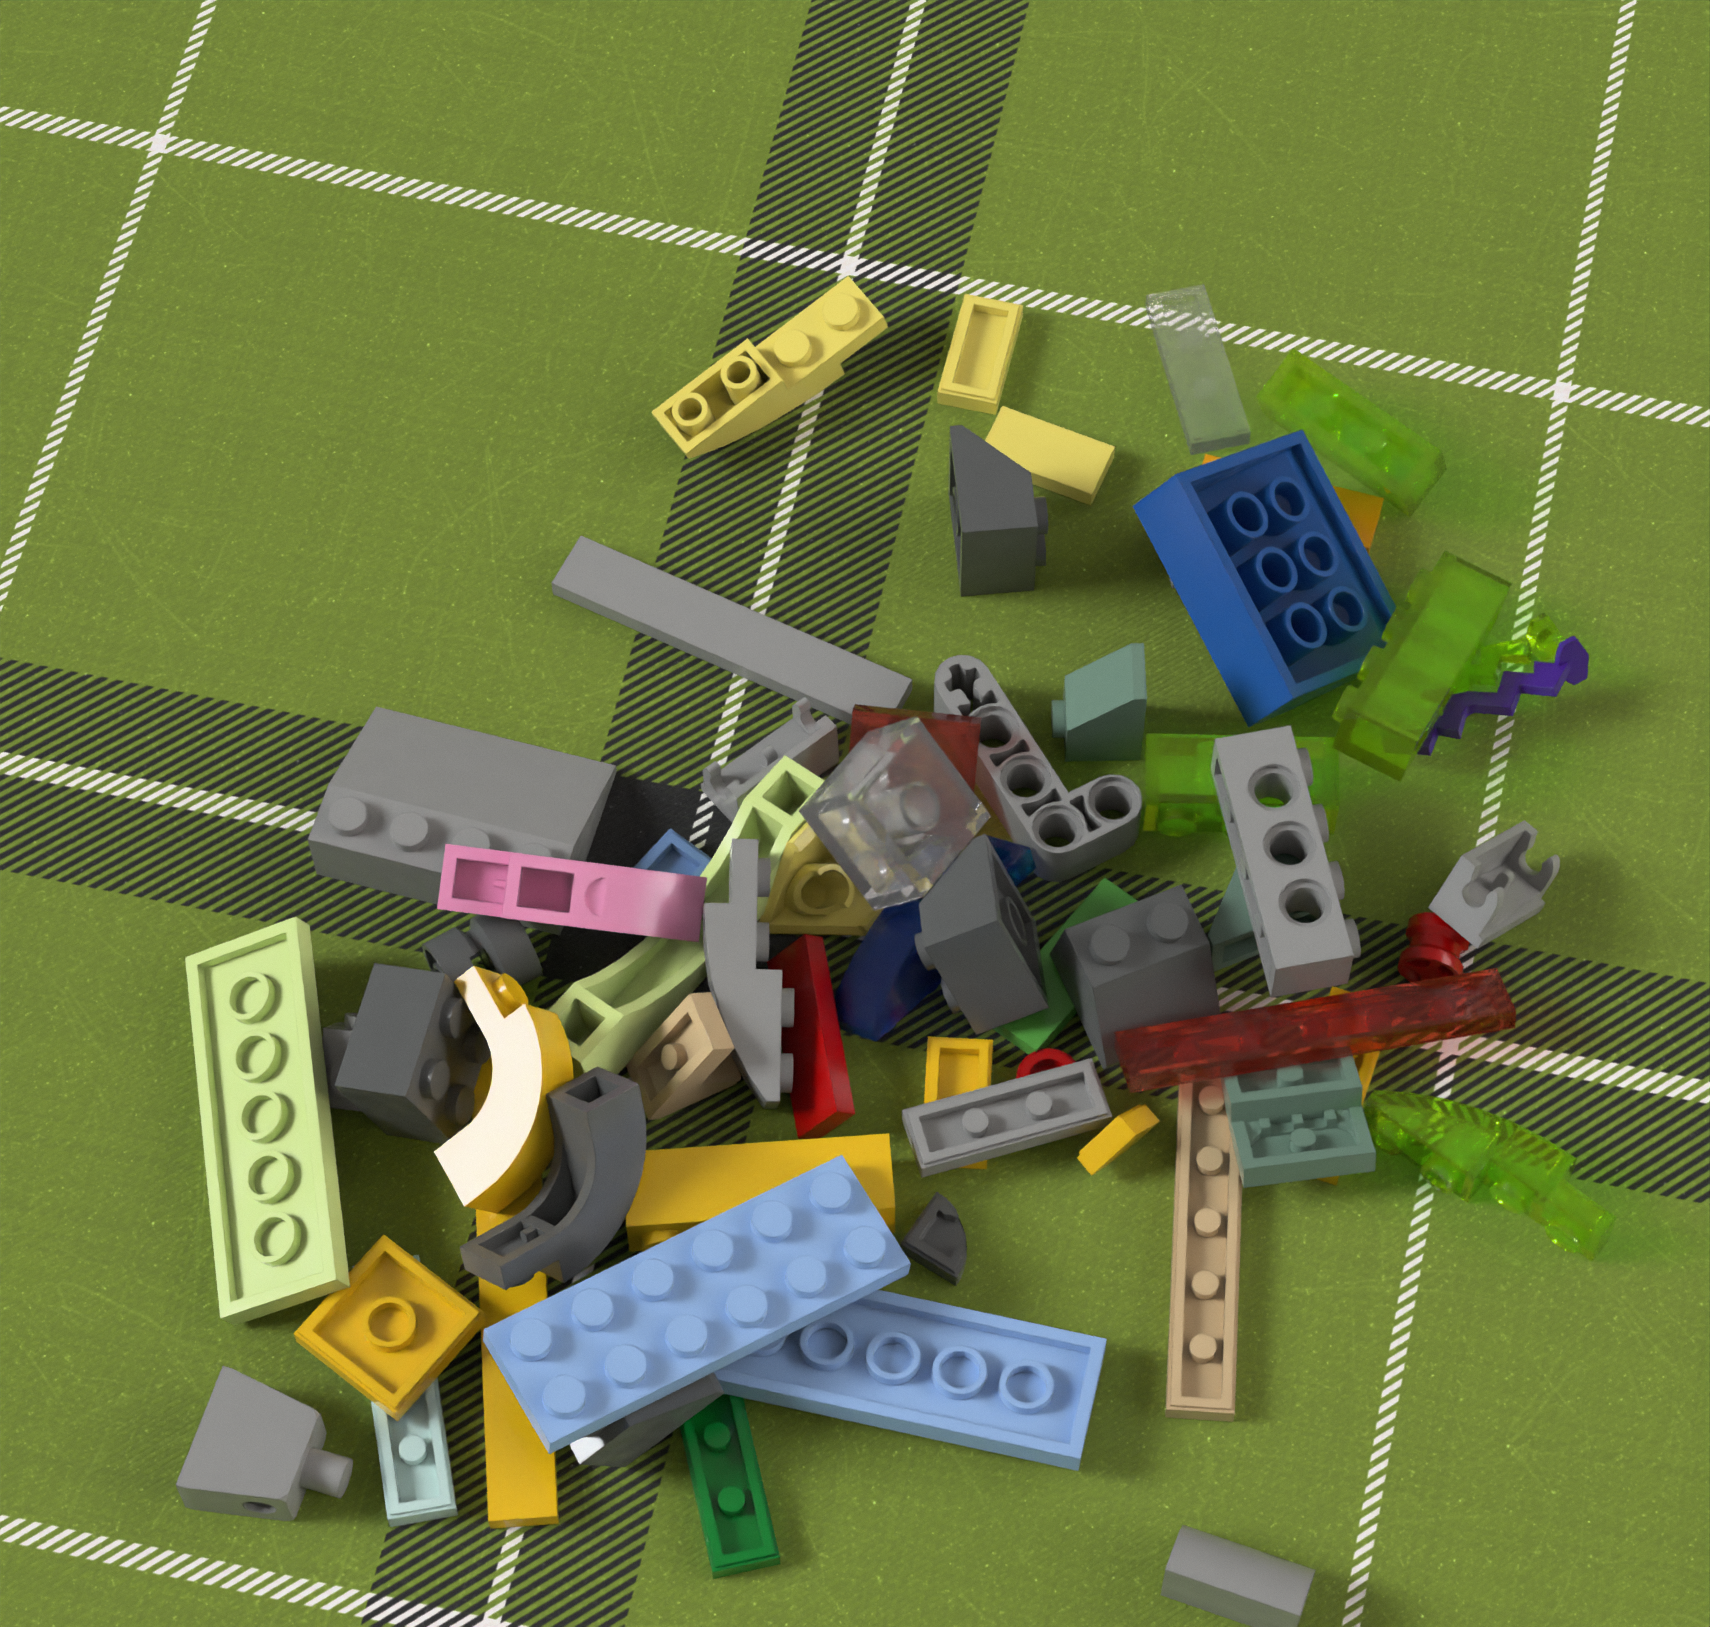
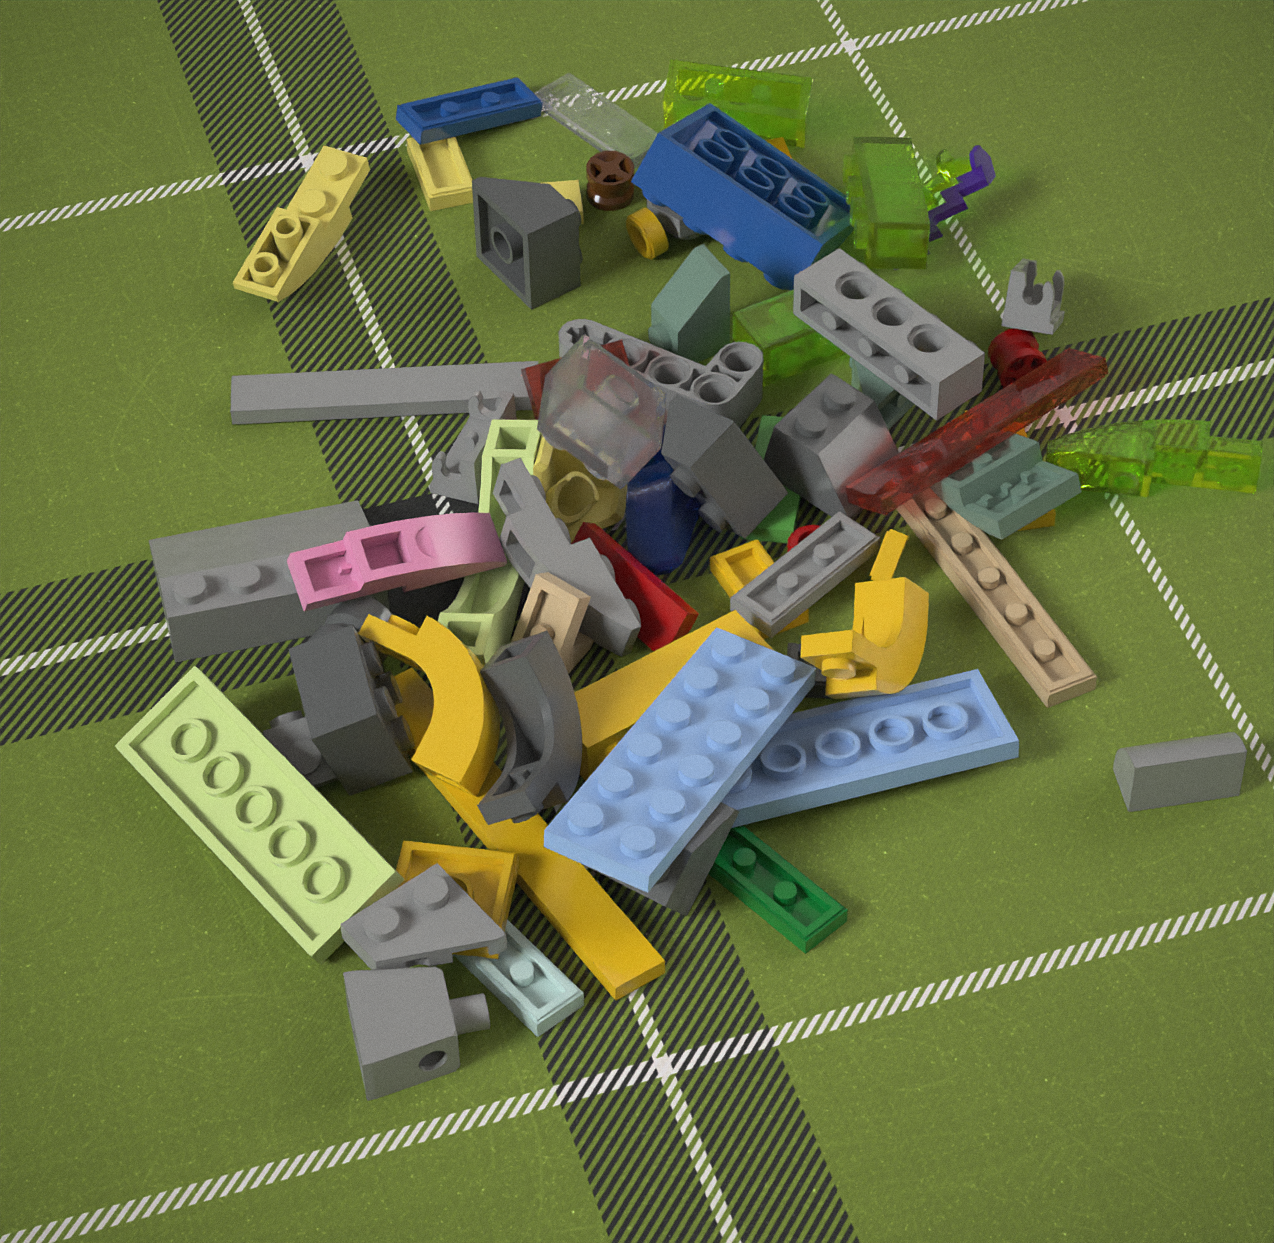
camera: 30 degrees left, 15 degrees down
(331, 1350) = (421, 925): none -> light grey wing
(1014, 1266) = (882, 646): none -> yellow arch
(1055, 289) = (468, 110): none -> blue tile
(1139, 563) = (647, 233): none -> yellow tile
(1152, 452) = (610, 180): none -> reddish brown wheel

